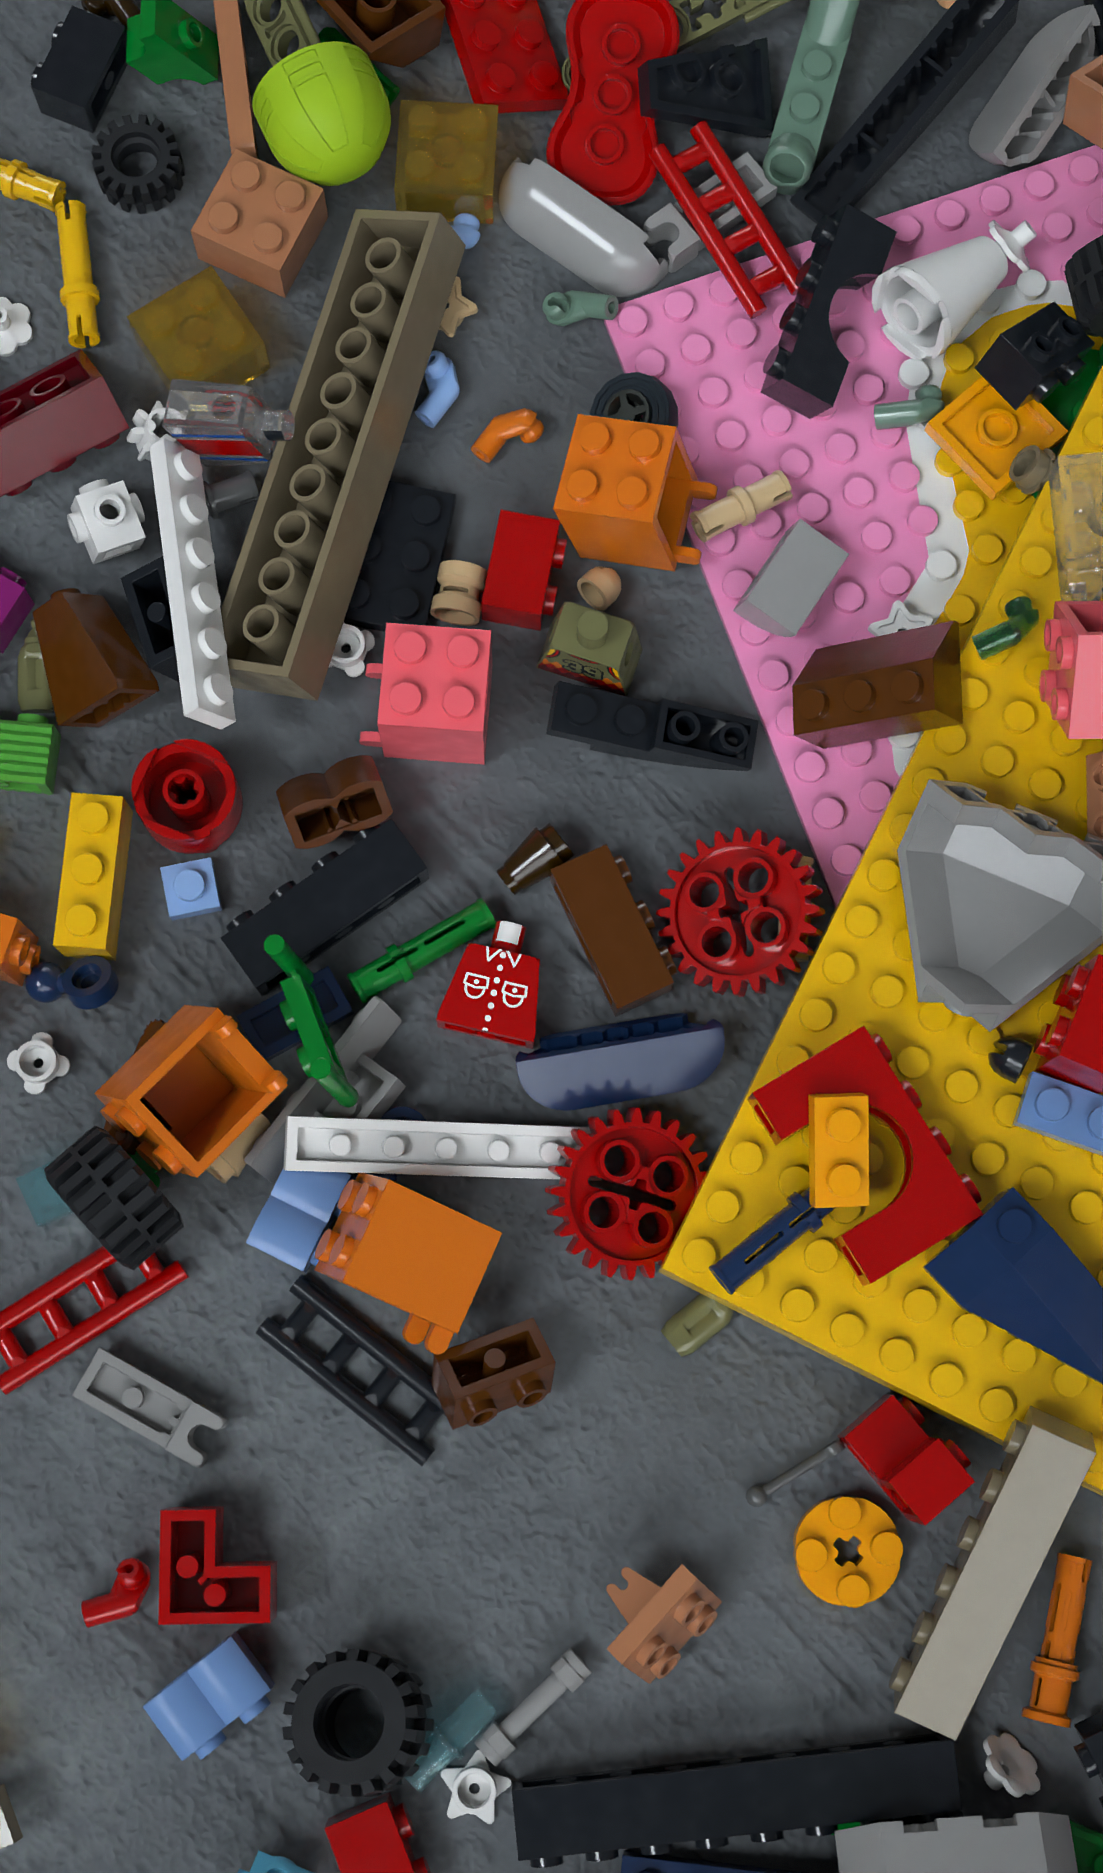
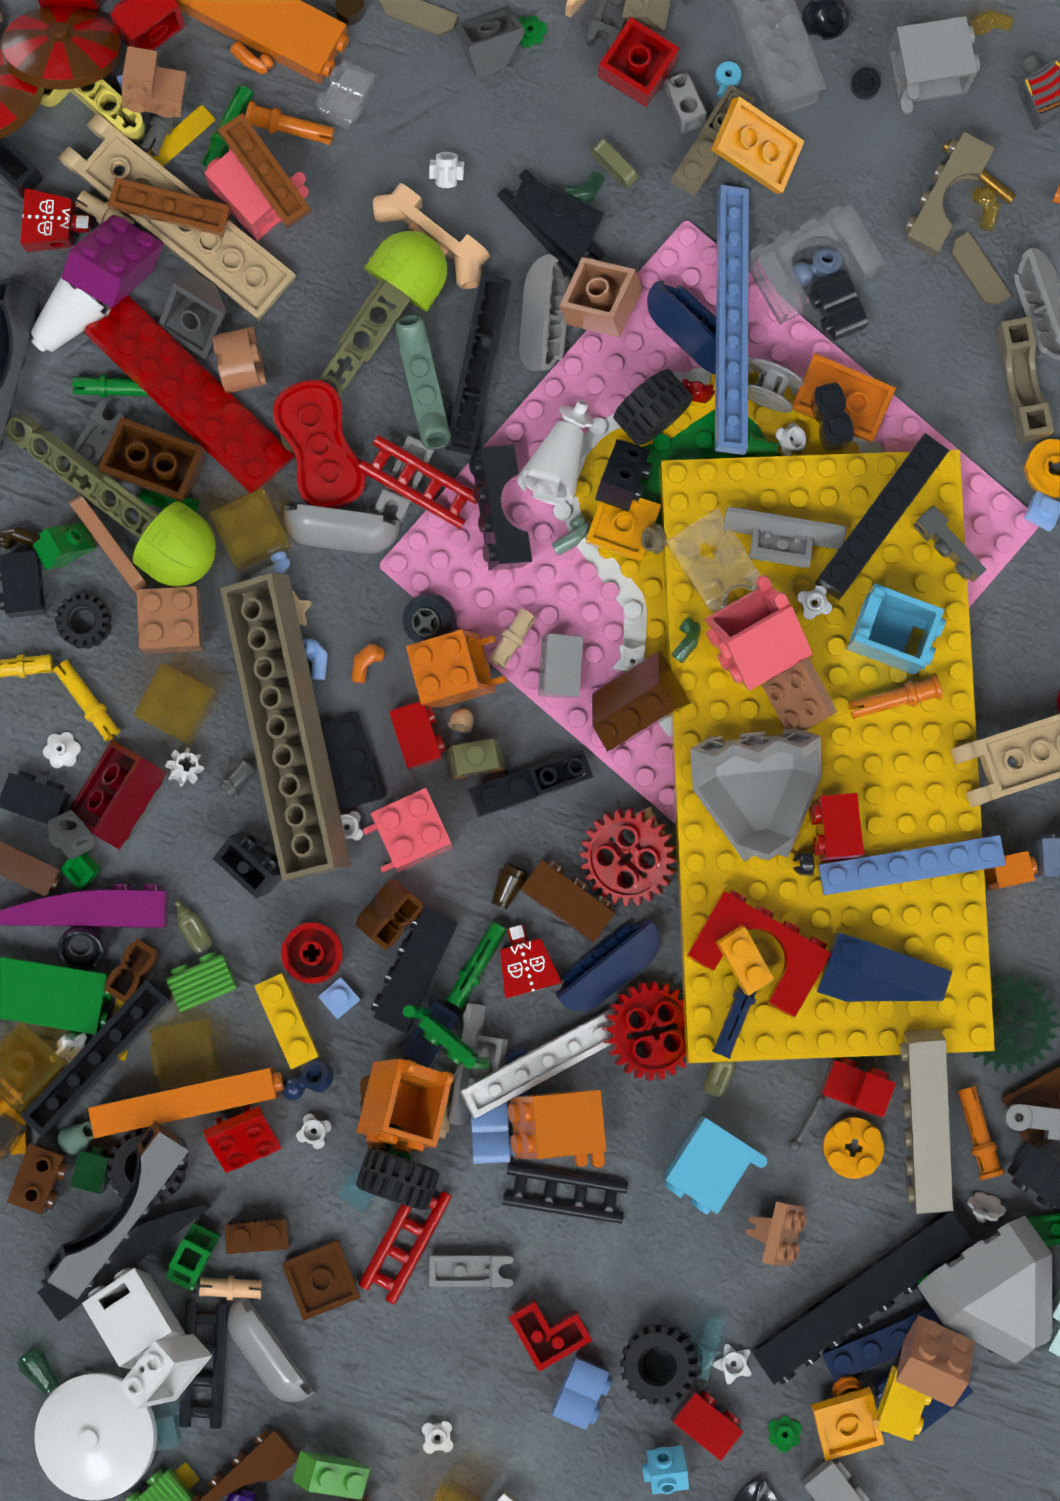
camera: 30 degrees left, 5 degrees up
(89, 660) = (219, 909): reddish brown slope -> none
(109, 536) = (194, 829): white brick -> none
(125, 1595) = (511, 1369): red arm -> none
(192, 585) = (253, 842): white plate -> none
(225, 422) = (220, 744): clear torso -> none
(459, 593) = (387, 759): tan wheel -> none
(493, 1374) = (633, 1159): reddish brown brick -> none
(498, 1739) = (733, 1335): light grey bar -> none
(578, 305) = (364, 570): sand green arm -> none
(609, 1450) = (709, 1166): none -> medium azure container
(719, 86) = (371, 412): black wing -> none

